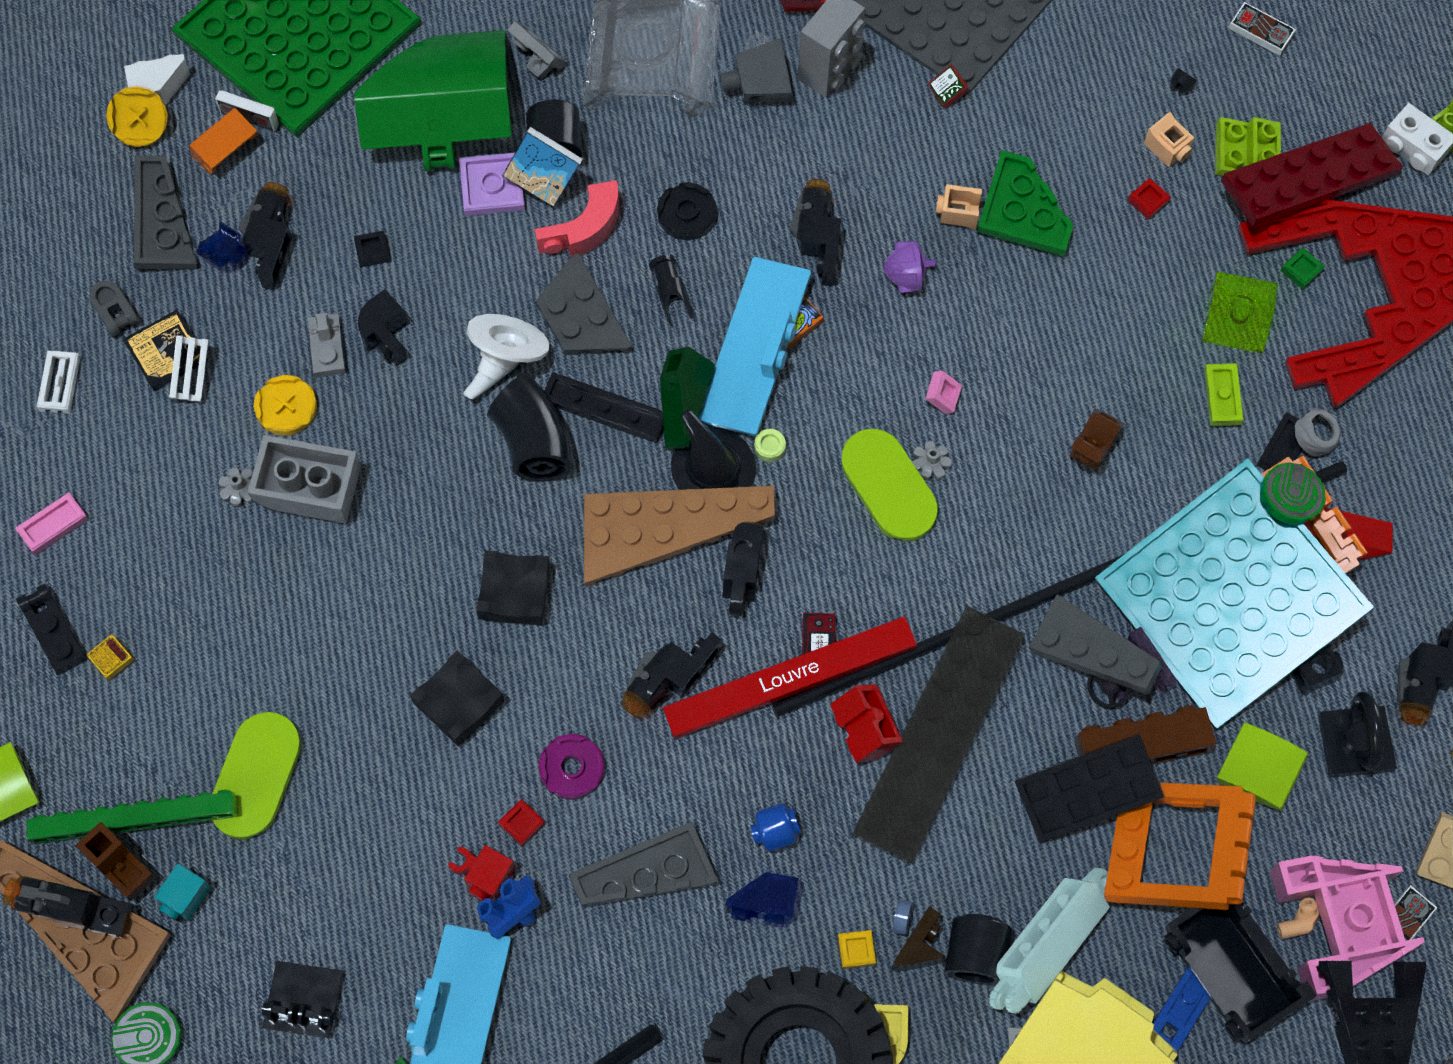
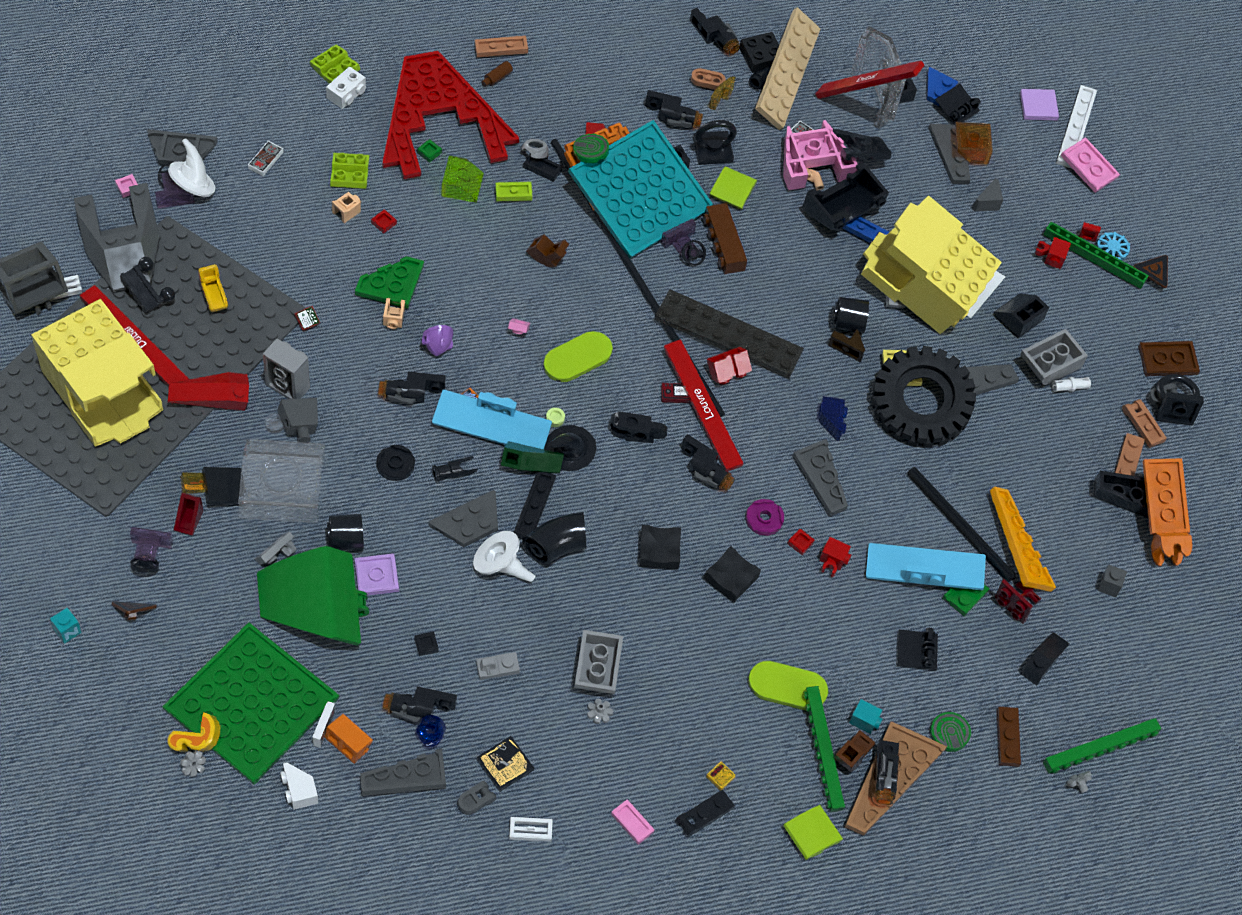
camera: 100 degrees left, 10 degrees down
(137, 116) = (330, 792): yellow tile -> none
(191, 342) = (521, 740): white tile -> none
(285, 405) = (541, 688): yellow tile -> none
(379, 322) = (486, 634): black brick -> none
(513, 906) = (855, 538): blue hips -> none
(542, 167) = (374, 535): tile -> none
(586, 230) = (408, 510): coral arch -> none
(651, 526) = (613, 476): medium nougat wing -> none
(776, 827) = (792, 410): blue head -> none
(856, 949) = (853, 376): yellow tile -> none
(902, 917) = (835, 352): sand blue tile -> none
(931, 460) = (560, 335): light grey plant -> none
(1049, 941) = (843, 279): light aqua hinge -> none
(1089, 646) = (674, 258): dark grey wing -> none
(1089, 788) = (758, 259): black plate -> none
(1184, 79) = (304, 199): black hinge -> none
(1228, 856) = (786, 243): orange hinge -> none
(1311, 174) = (373, 137): dark red plate -> none

